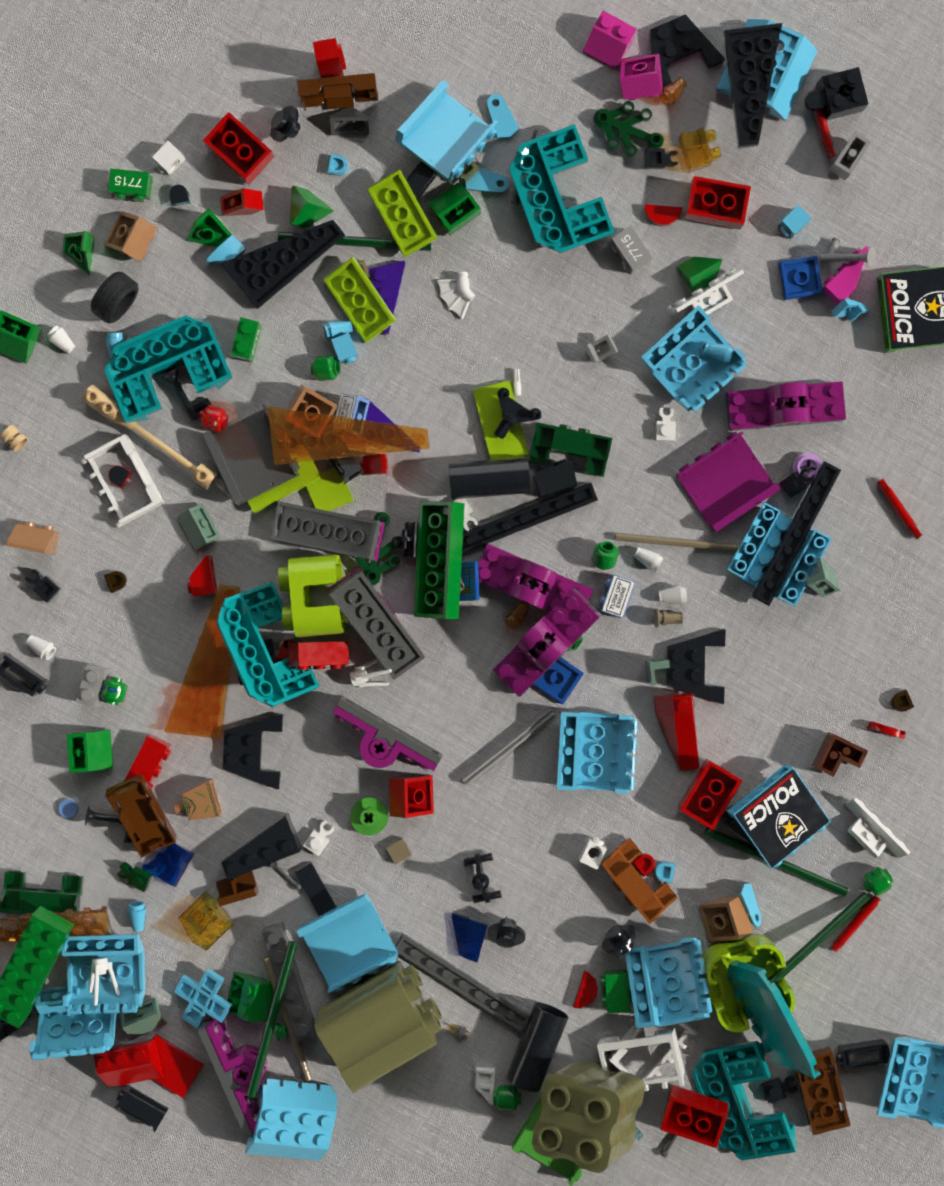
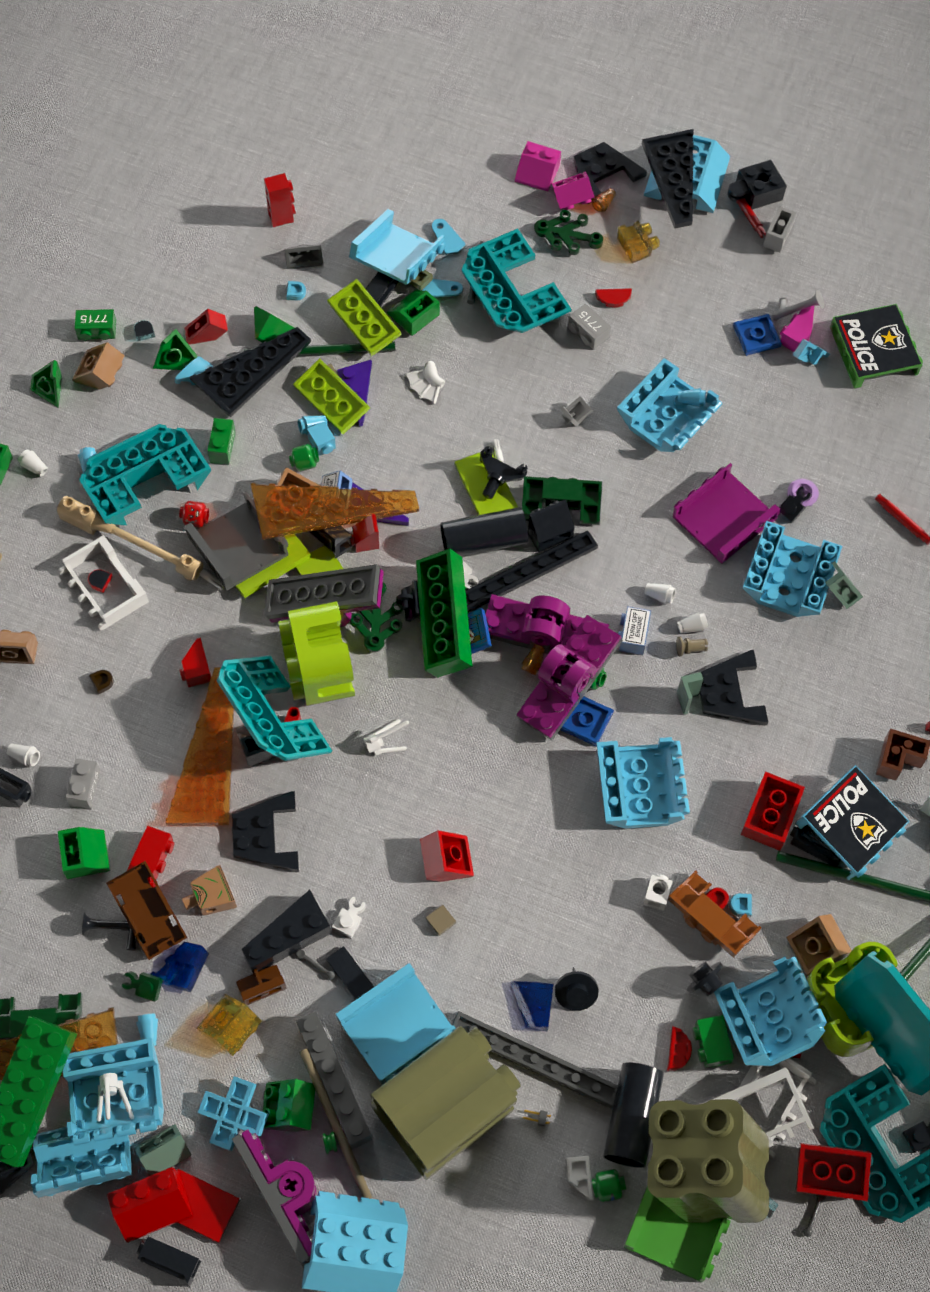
camera: 10 degrees left, 25 degrees down
(45, 587) = (24, 694): black plate -> none
(68, 808) = (61, 922): medium blue piece -> none
(113, 691) = (106, 787): green head -> none
(114, 297) = (86, 414): black tyre -> none
(168, 158) = (131, 299): white brick -> none
(190, 409) = (148, 482): black piece -> none
(198, 526) = (185, 617): sand green panel -> none
(238, 148) = (199, 282): red brick -> none
(271, 1019) = (318, 1114): dark green piece -> none
(285, 124) = (242, 259): black piece -> none
(318, 655) = (327, 716): red brick -> none
(338, 91) = (290, 226): reddish brown piece -> none
(369, 816) = (403, 884): bright green piece -> none
(375, 622) = (386, 677): dark grey piece -> none
(383, 732) = (409, 796): piece -> none
(481, 880) = (538, 932): black axle -> none
(508, 746) = (545, 794): light grey axle -> none
(605, 555) = (615, 592): green head -> none
(656, 158) = (601, 253): black plate -> none
(666, 428) = (652, 474): white plate -> none
(676, 542) = (684, 575): dark tan piece -> none
(678, 723) = (723, 744): red wedge -> none
(699, 271) = (660, 340): green slope -> none
(711, 297) = (677, 352): white bracket -> none
(717, 202) = (664, 278): red brick -> none
(750, 904) = (843, 925): medium azure piece -> none
(785, 405) = (768, 438): magenta piece -> none
(794, 222) = (740, 287): medium azure brick -> none
(796, 533) = (805, 550): black tile -> none

